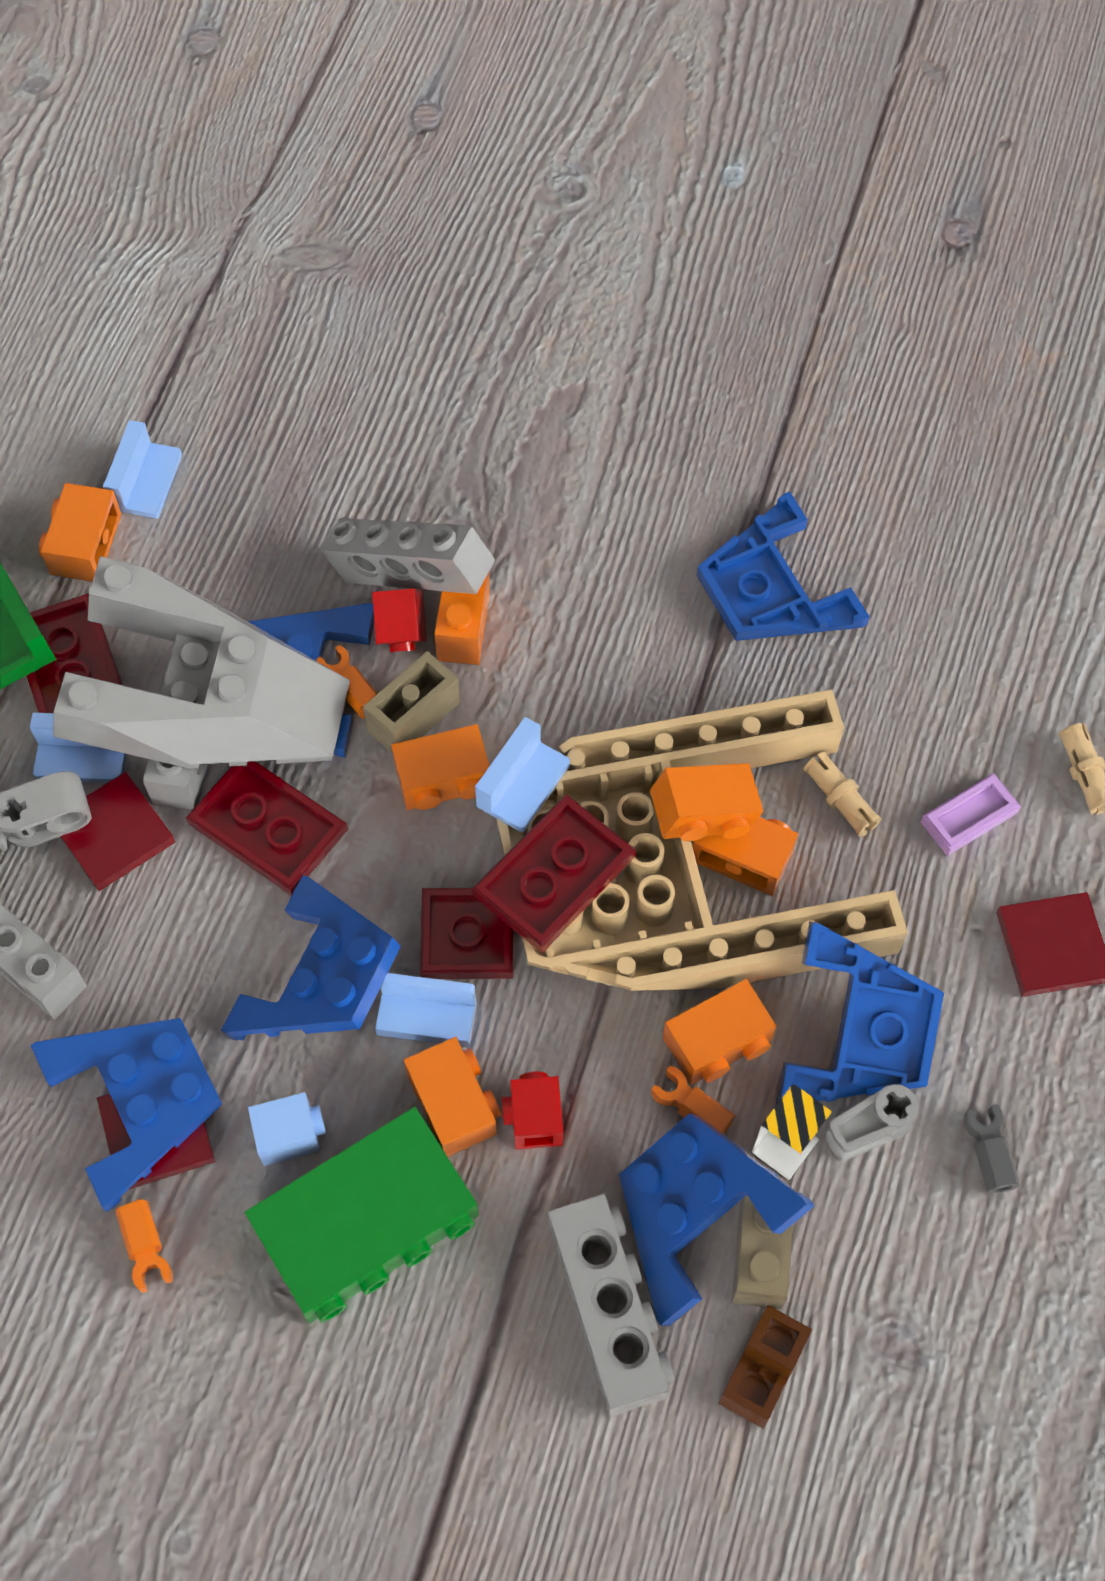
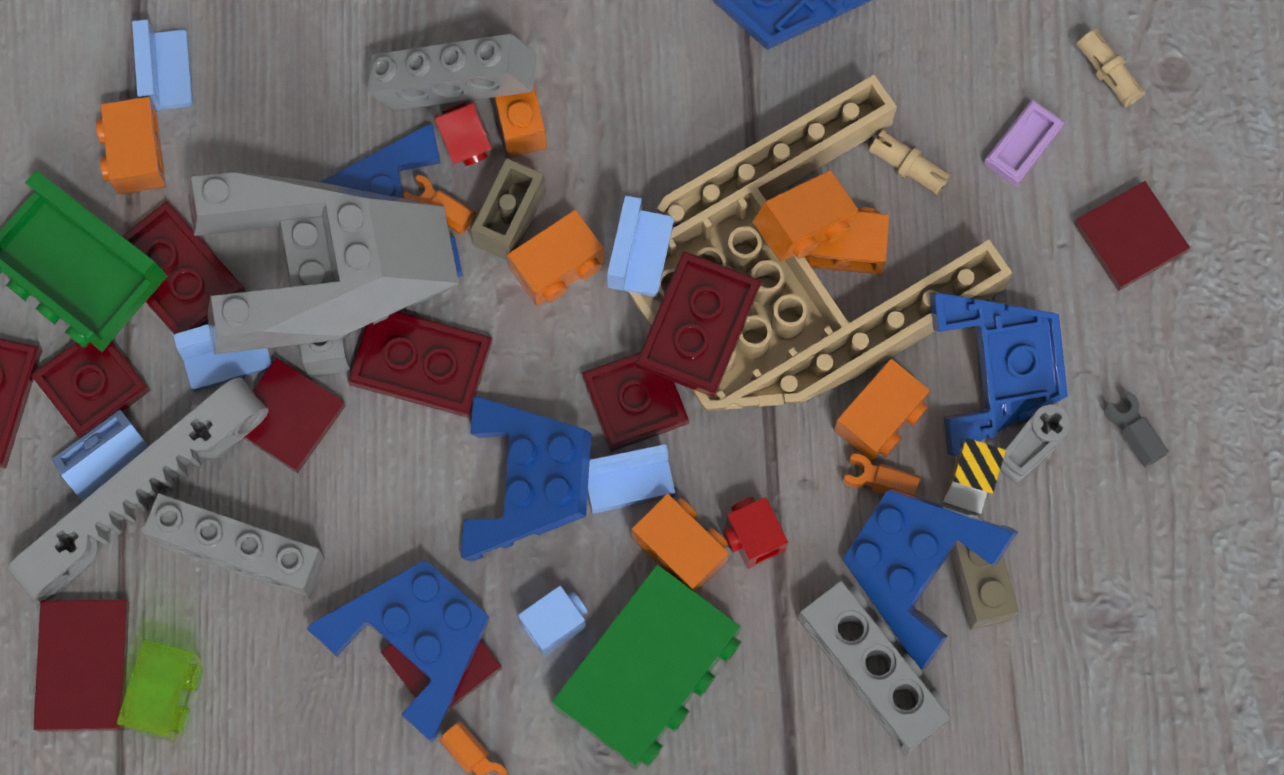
camera: 20 degrees left, 10 degrees up
(765, 1366) = (1015, 671): reddish brown slope -> none

